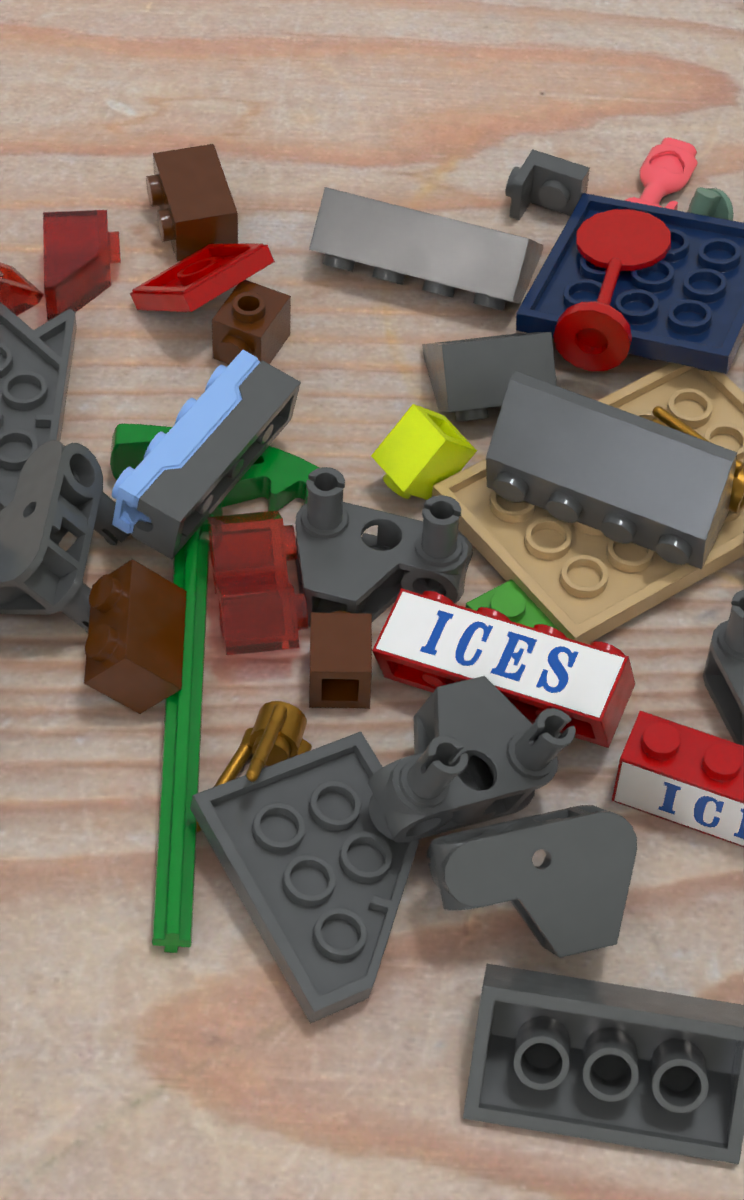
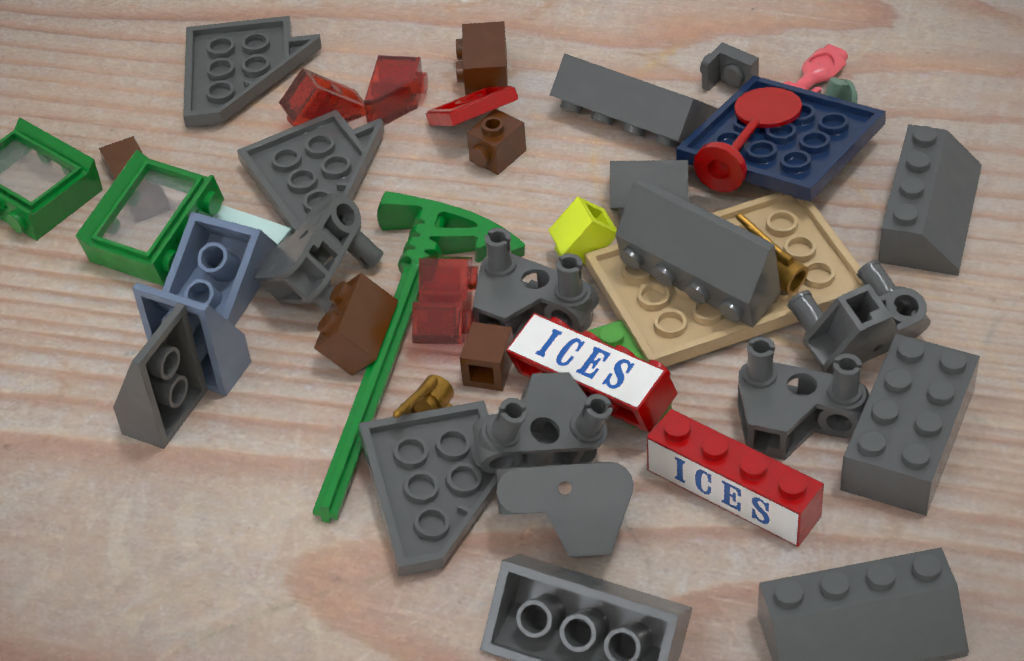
camera: 20 degrees right, 5 degrees down
(204, 453) = (433, 214): dark grey piece -> none

